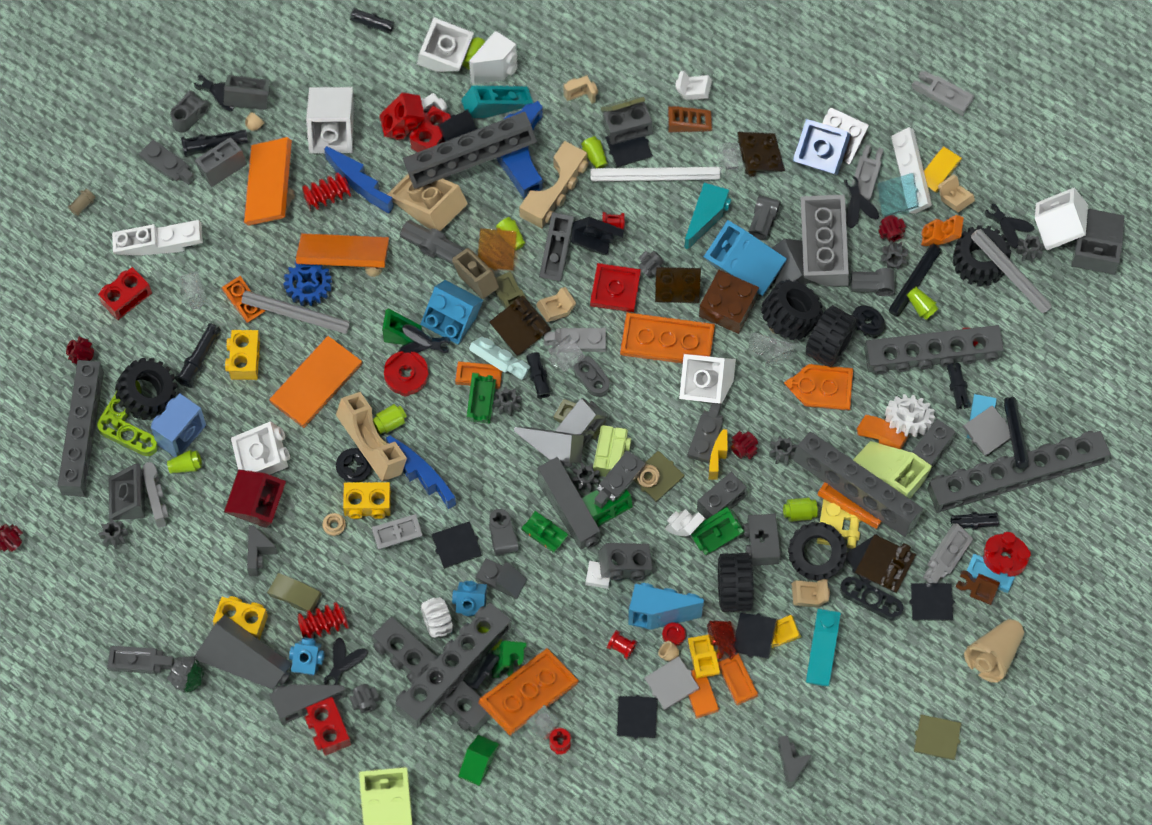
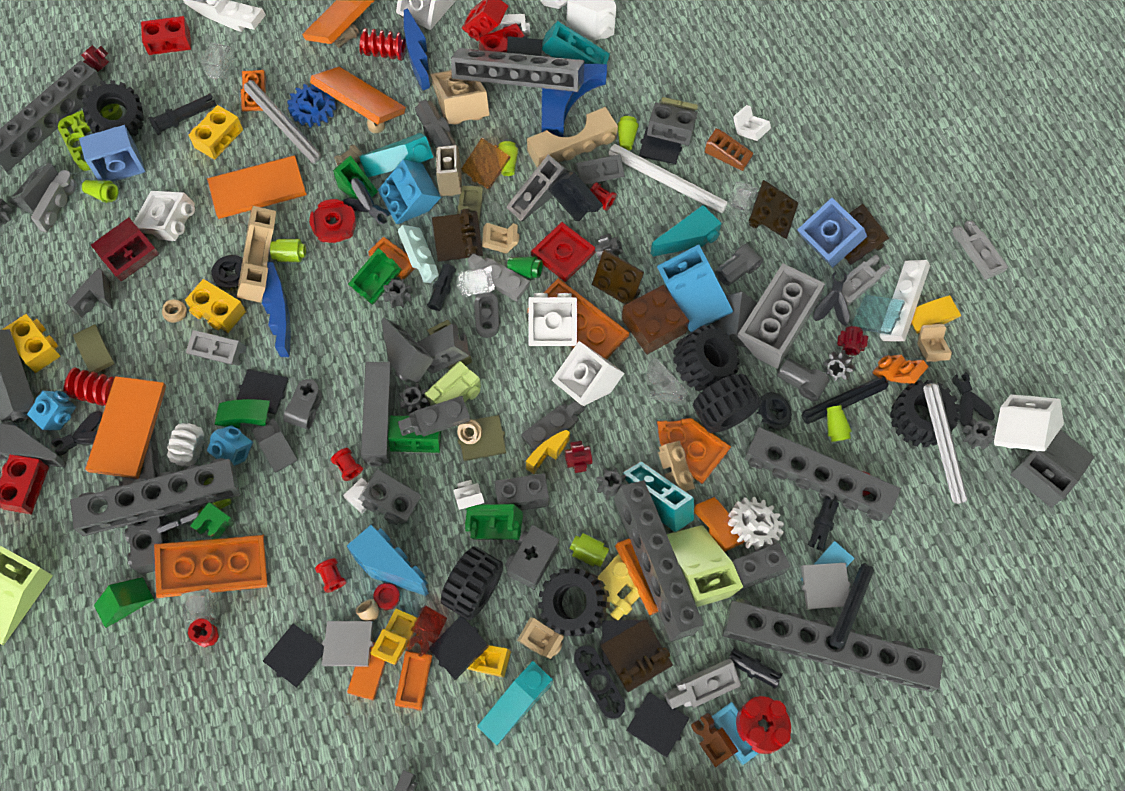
camera: 30 degrees right, 0 degrees up
(364, 698) = (69, 478): dark grey gear -> none
(377, 311) = (353, 151): none -> dark tan bush
(383, 630) = (126, 427): none -> orange tile
(419, 283) = (389, 157): none -> teal slope
(457, 567) = (242, 411): none -> green slope
(544, 532) = (339, 426): green hips -> none
(570, 557) = (346, 464): none -> red bush
(578, 87) = (650, 75): tan bracket -> none
(594, 318) = (526, 266): none -> green cone
(596, 198) = (600, 169): none -> dark grey hinge
(651, 349) = (552, 320): none -> white plate
(831, 415) = (673, 456): none -> tan hinge
(840, 435) = (671, 502): none -> teal slope

